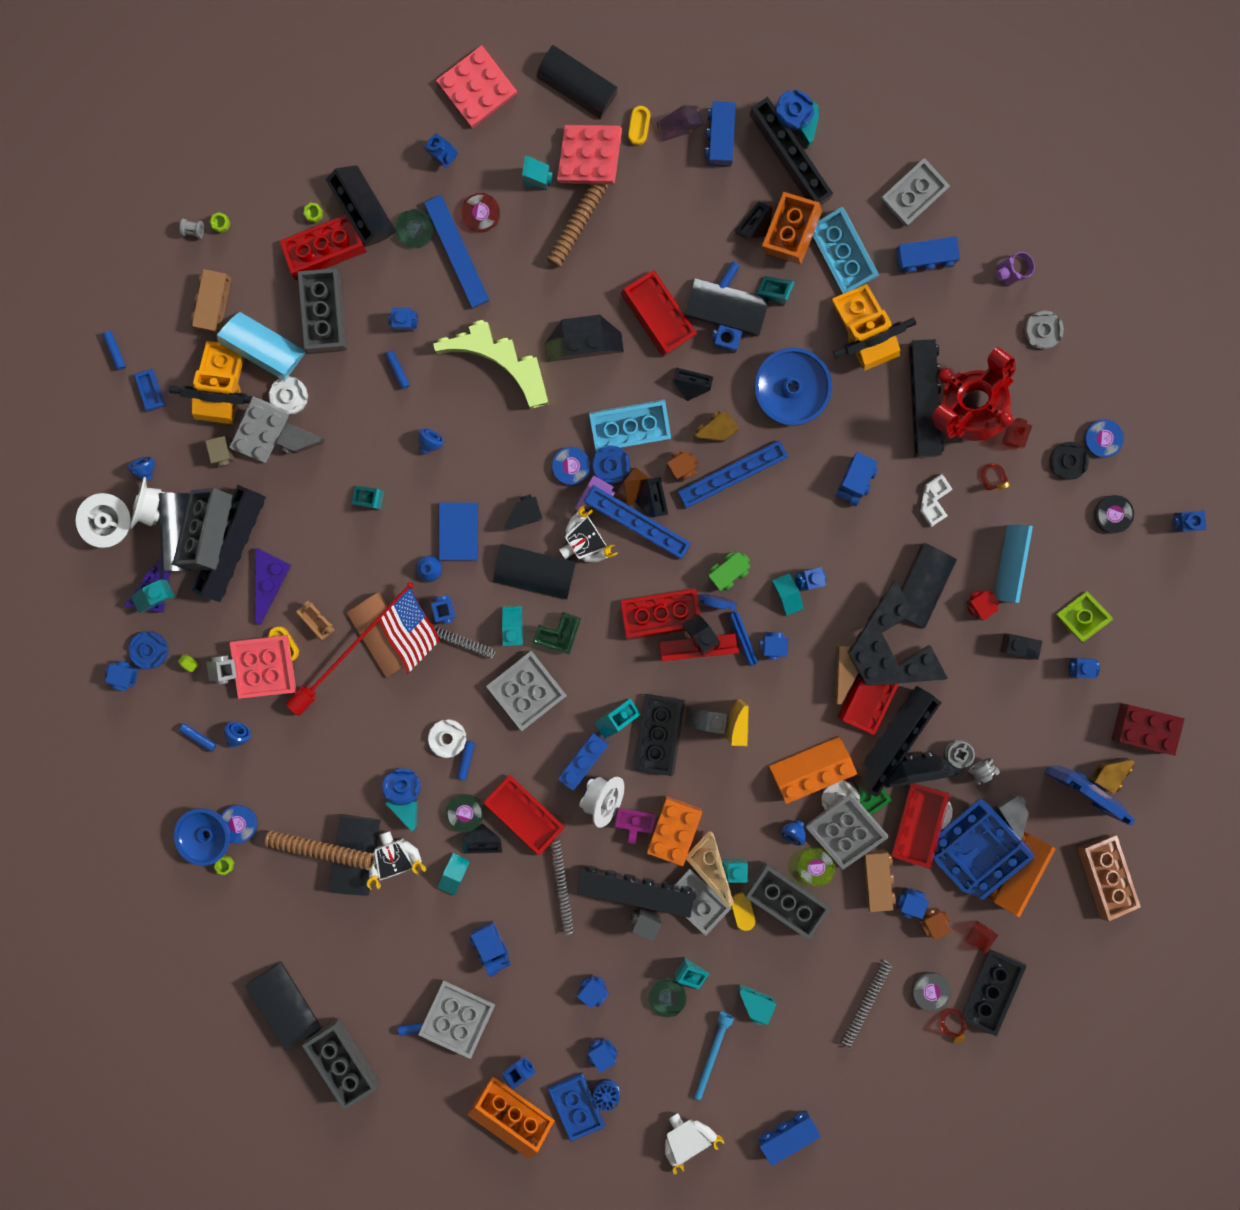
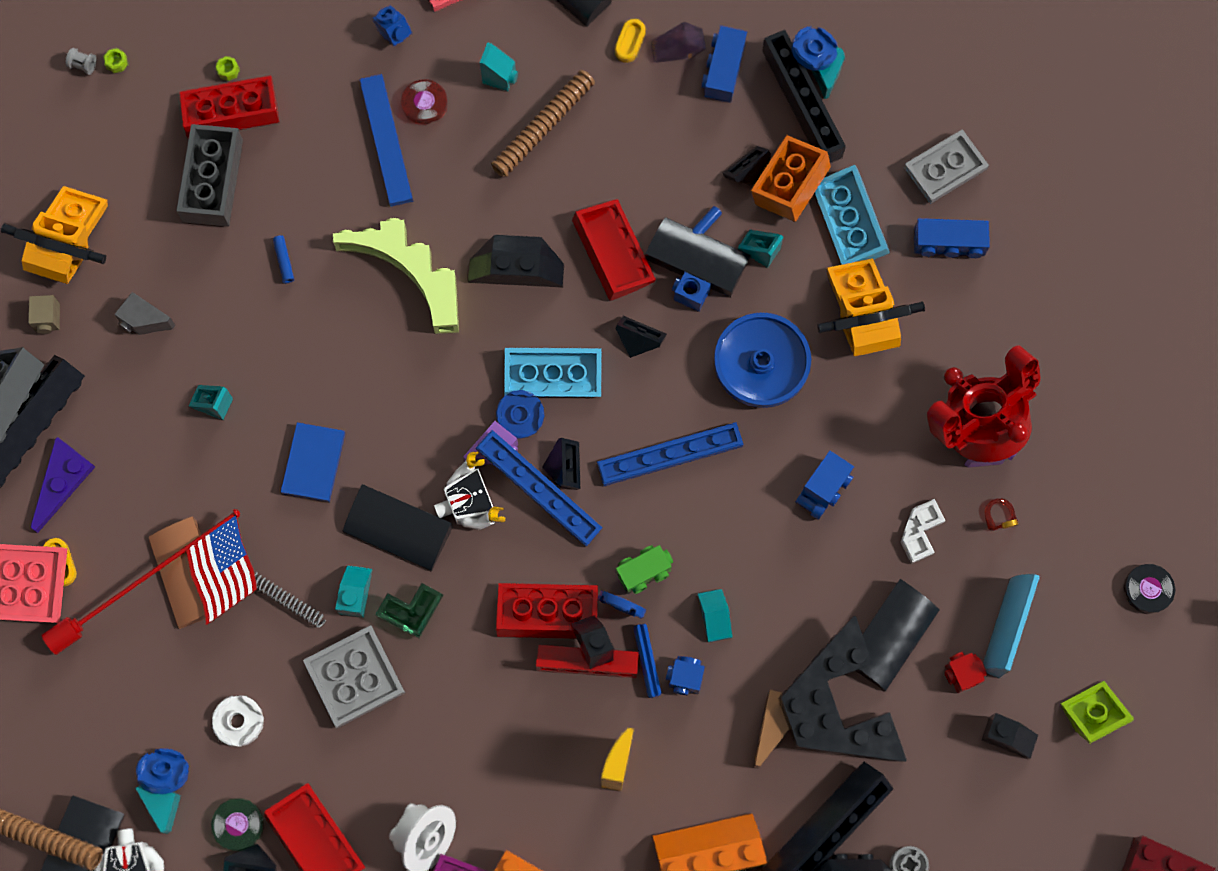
camera: 10 degrees right, 15 degrees down
(211, 301) = (81, 143): medium nougat brick -> none
(259, 429) = (98, 294): light grey plate -> none
(260, 345) = (126, 202): medium azure slope -> none
(289, 395) = (144, 266): white tile -> none
(315, 621) = (107, 541): medium nougat hinge -> none
(360, 205) = (284, 68): black brick -> none
(403, 319) = (304, 202): blue brick -> none
(414, 228) = (342, 106): clear green tile -> none
(428, 568) = (265, 501): blue brick -> none
(429, 440) = (302, 347): blue brick -> none
(443, 609) = (271, 552): blue brick -> none
(466, 759) = (255, 753): blue piece -> none
(524, 513) = (399, 453): black slope -> none
(571, 465) = (470, 408): blue tile -> none
(583, 761) = (407, 781): blue brick -> none
(589, 154) = (565, 59): coral plate -> none
(617, 718) = (463, 734): teal slope -> none
(631, 487) = (539, 445): reddish brown slope -> none
(659, 734) = (515, 766): black slope -> none
(682, 465) = (608, 431): dark orange brick -> none
(706, 720) = (580, 757): flat silver slope -> none
(718, 429) = (661, 395): pearl gold slope -> none
(810, 579) = (746, 598): blue brick -> none
(867, 705) = (796, 776): red slope -> none
(925, 397) = (925, 390): black brick -> none
(1008, 274) = (1047, 276): medium lavender piece -> none
(1017, 433) = (1035, 466): clear red brick -> none
(1043, 330) = (1084, 350): light grey tile -> none
(1069, 461) = (1098, 512): black tile -> none
(1083, 668) = (1088, 778): blue brick -> none
(1103, 438) = (1145, 492): blue tile -> none

